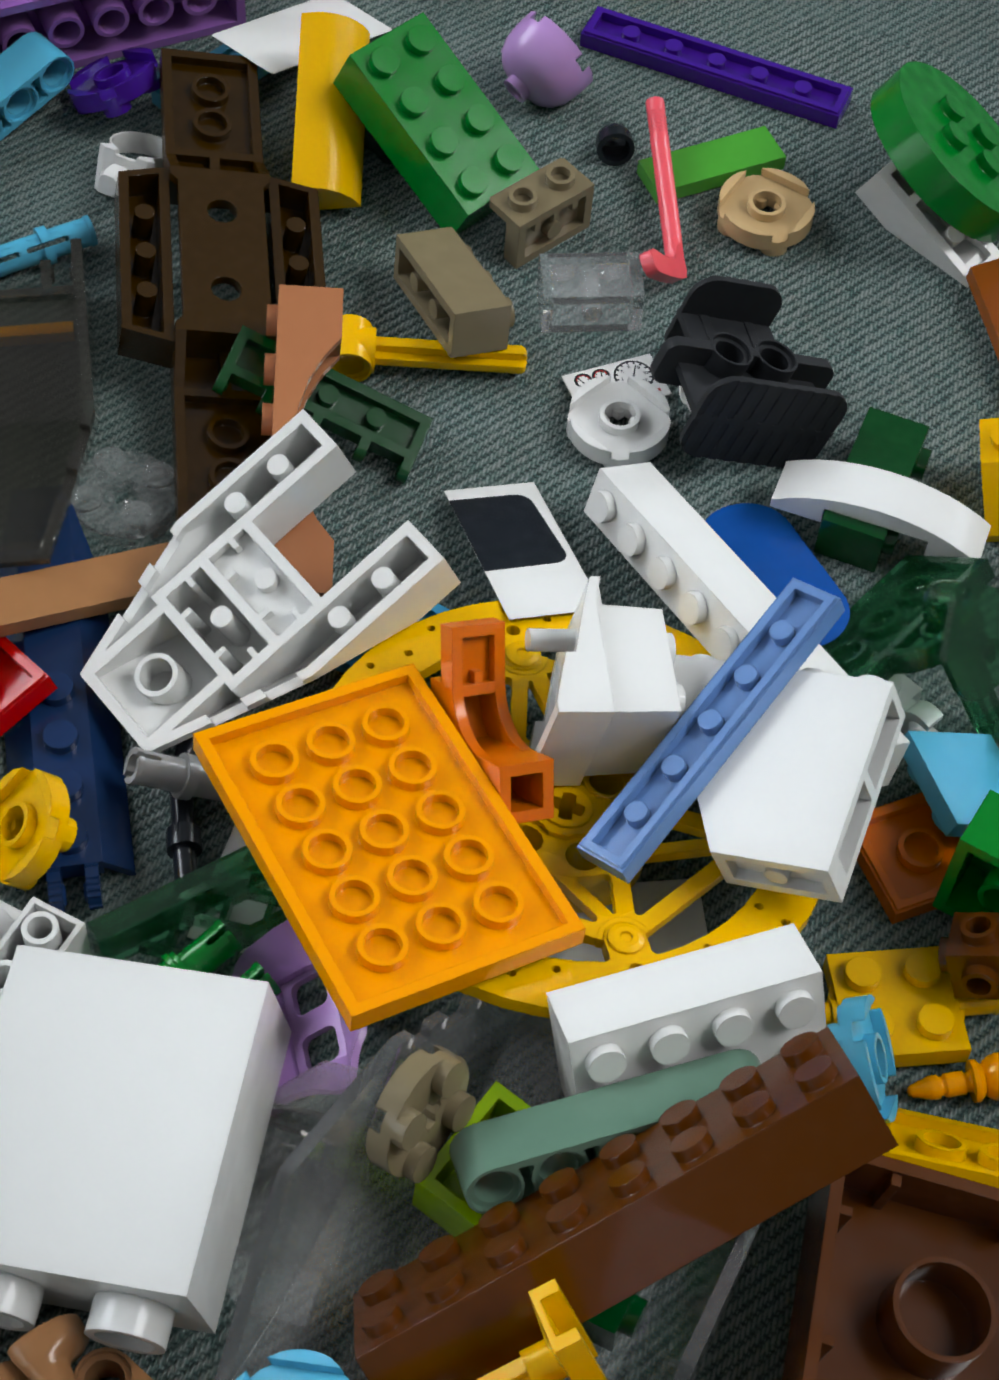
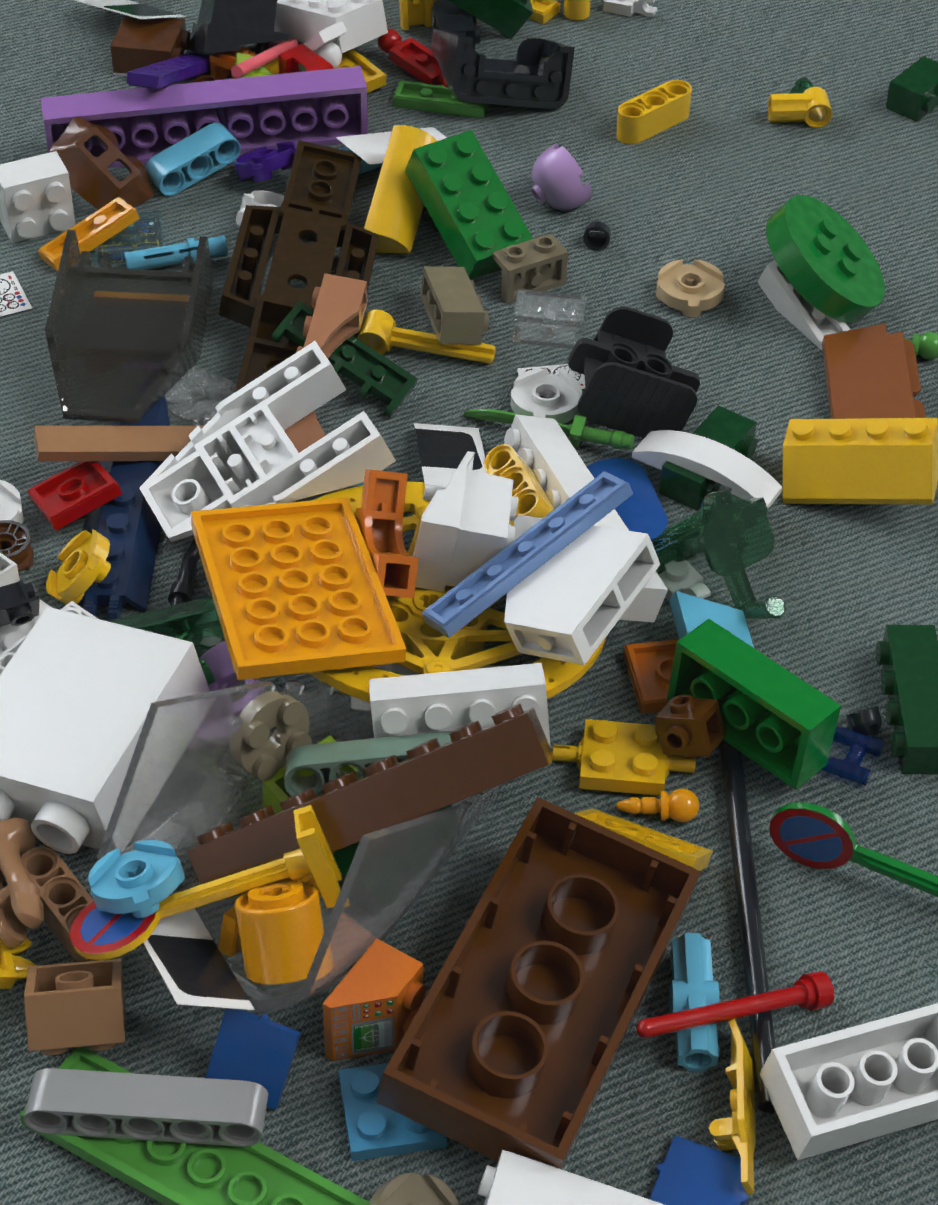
camera: 15 degrees right, 10 degrees down
(179, 775) = (177, 549): light grey pin -> none
(637, 581) = (506, 463): none -> yellow beam
(672, 265) = (596, 304): coral piece -> none
(678, 472) = (576, 431): none -> bright green sword
(715, 161) = (652, 256): bright green tile -> none
(716, 67) = (684, 197): dark purple tile -> none
(869, 1048) = (580, 766): medium azure plate -> none

